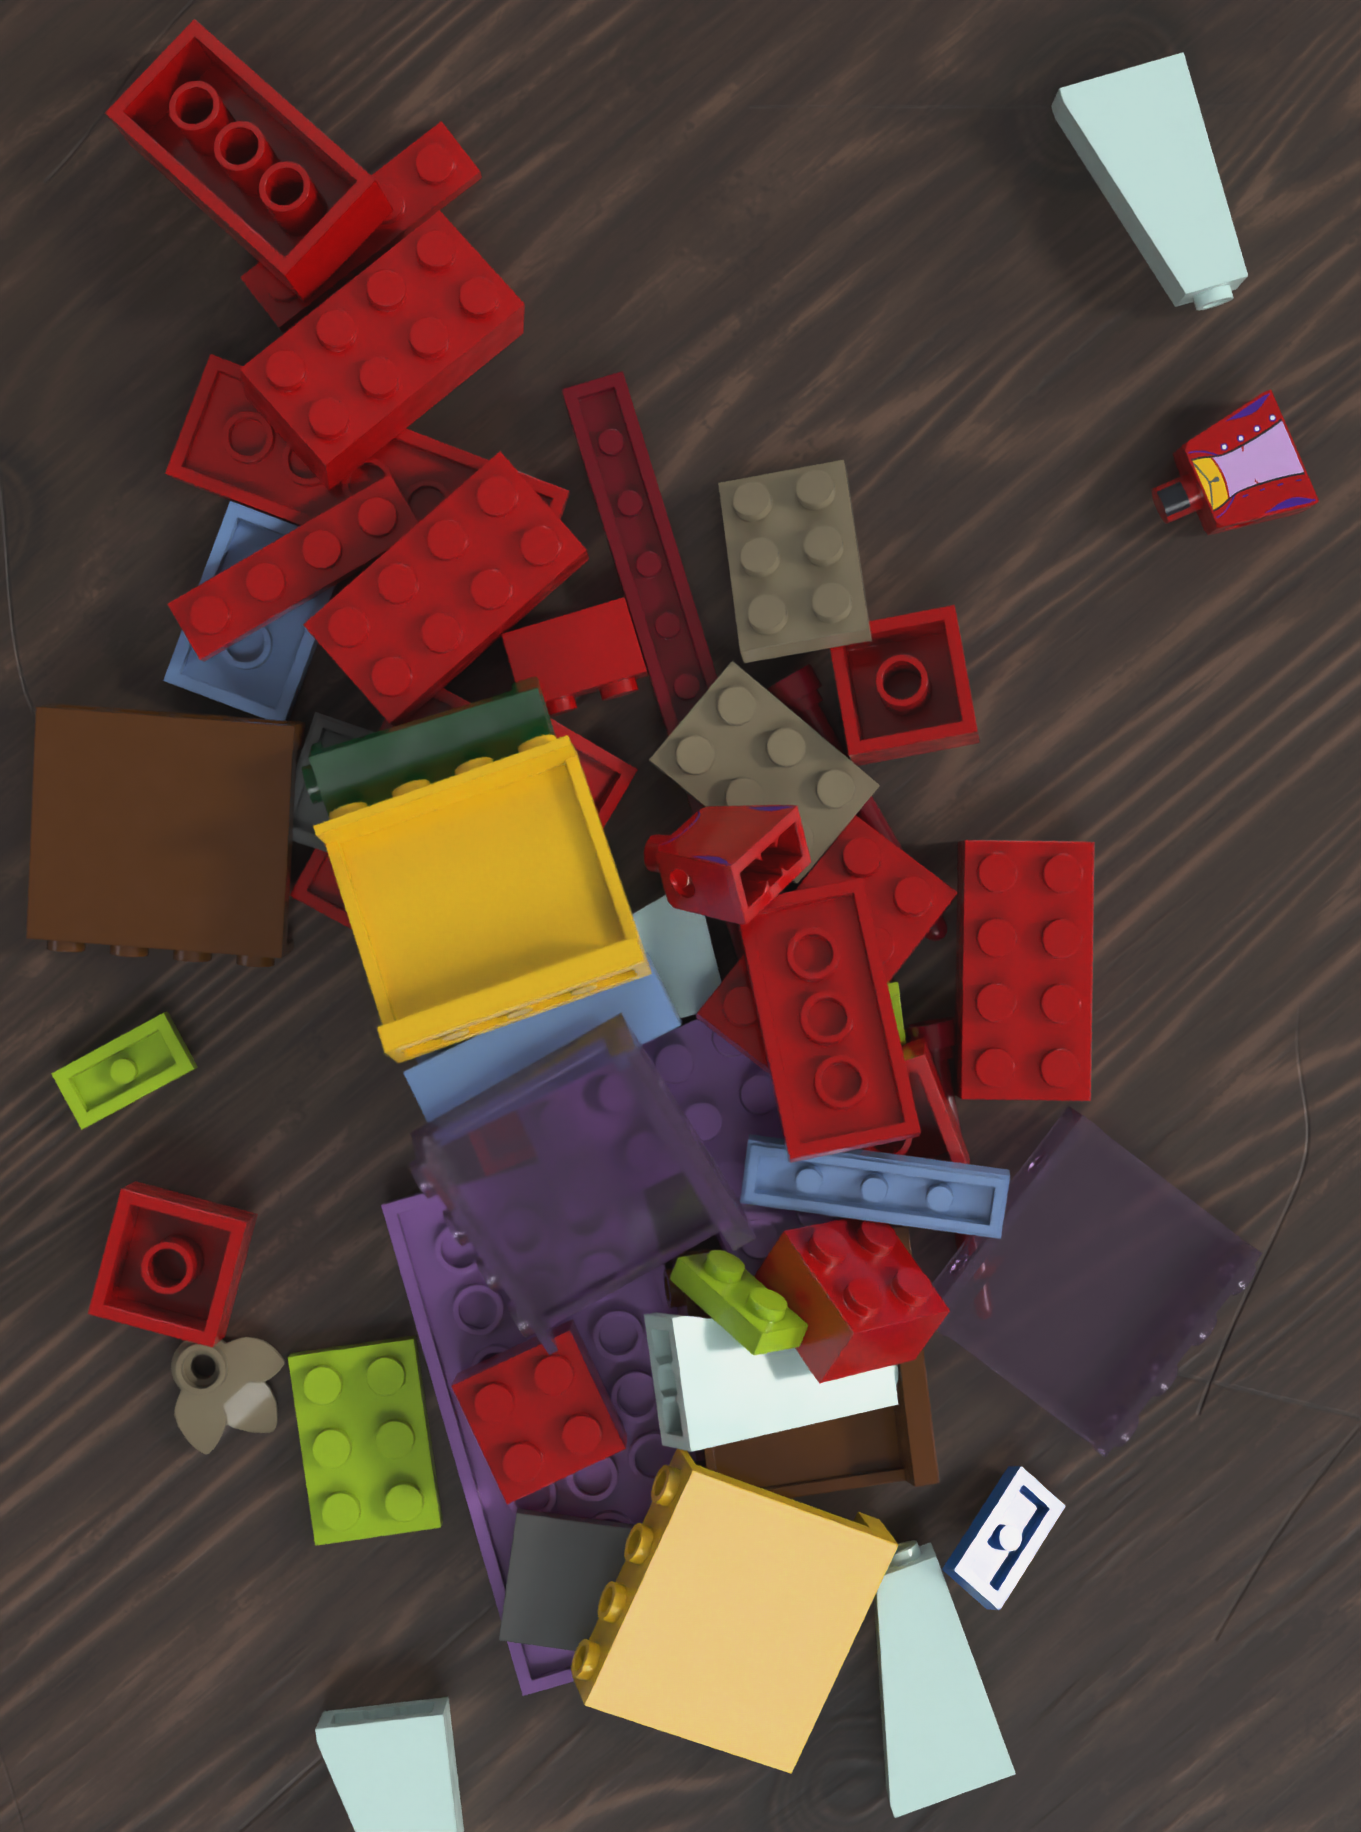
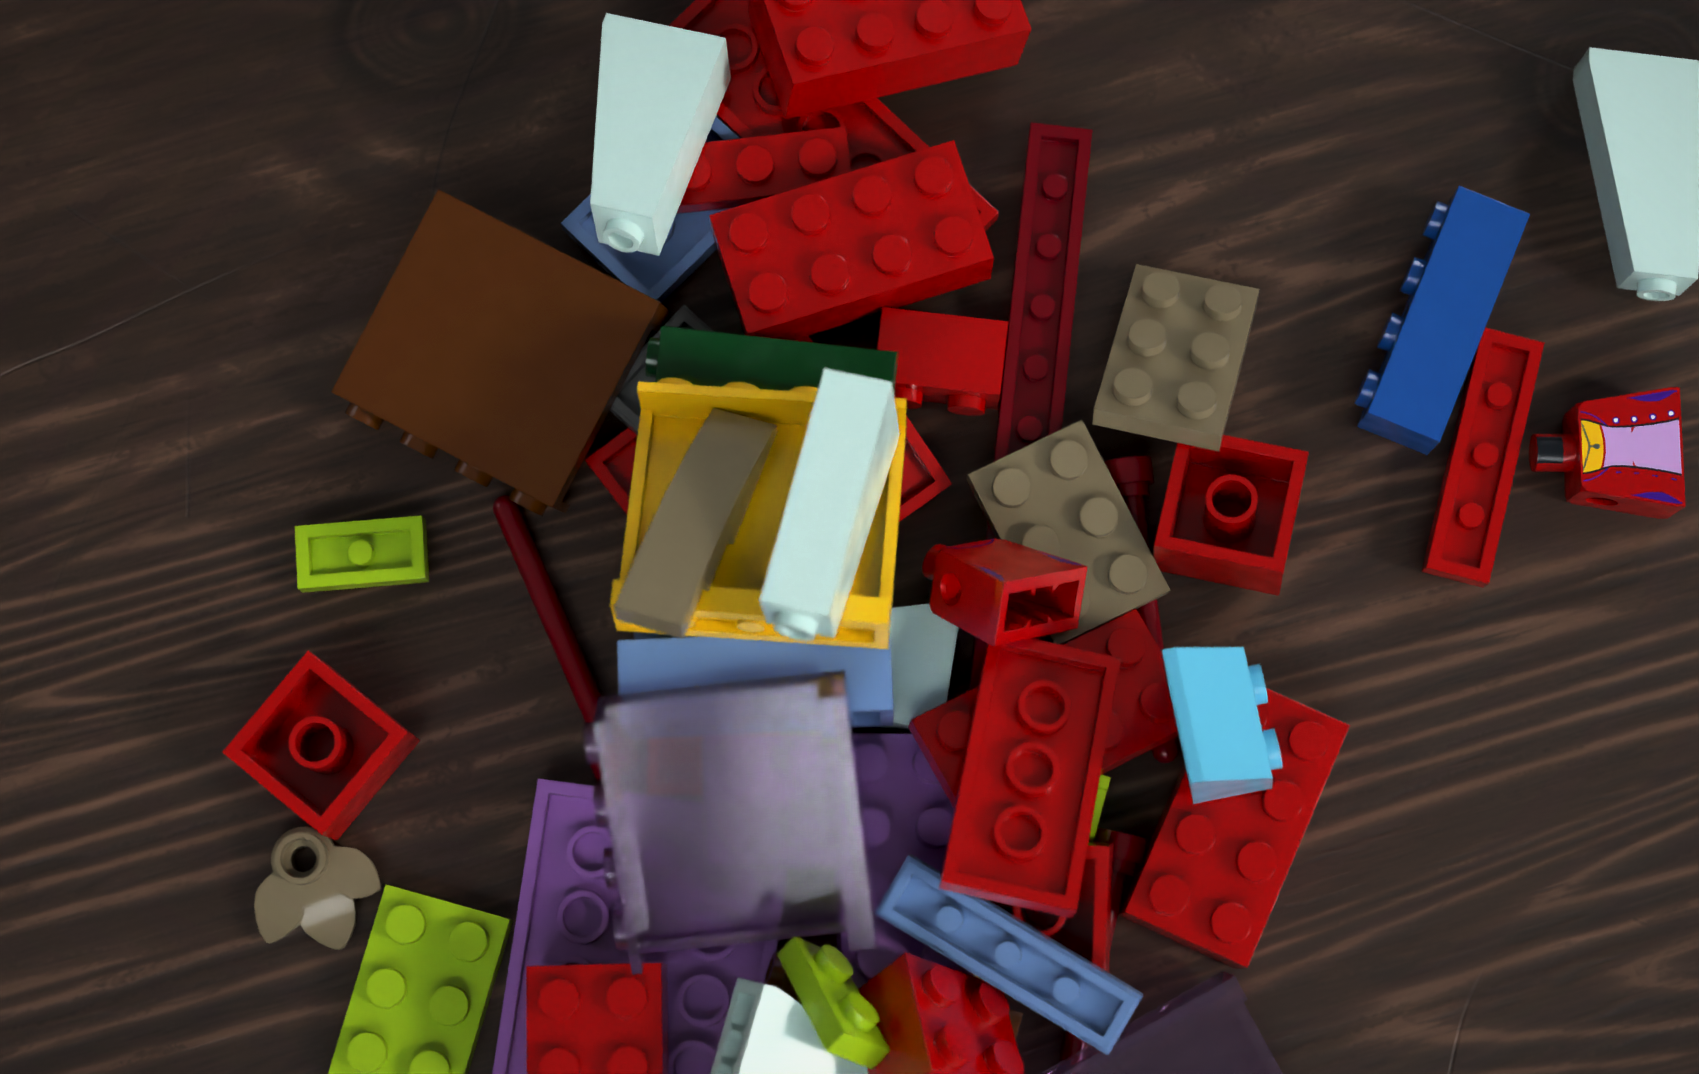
camera: 25 degrees right, 10 degrees down
(208, 558) = (651, 124): none -> light aqua slope
(323, 1048) = (549, 609): none -> dark red piece
(427, 939) = (695, 522): none -> dark tan slope
(545, 877) = (830, 504): none -> light aqua slope
(977, 900) = (1219, 721): none -> medium azure slope
(1025, 413) = (1442, 319): none -> blue brick
(1114, 528) = (1483, 458): none -> red plate

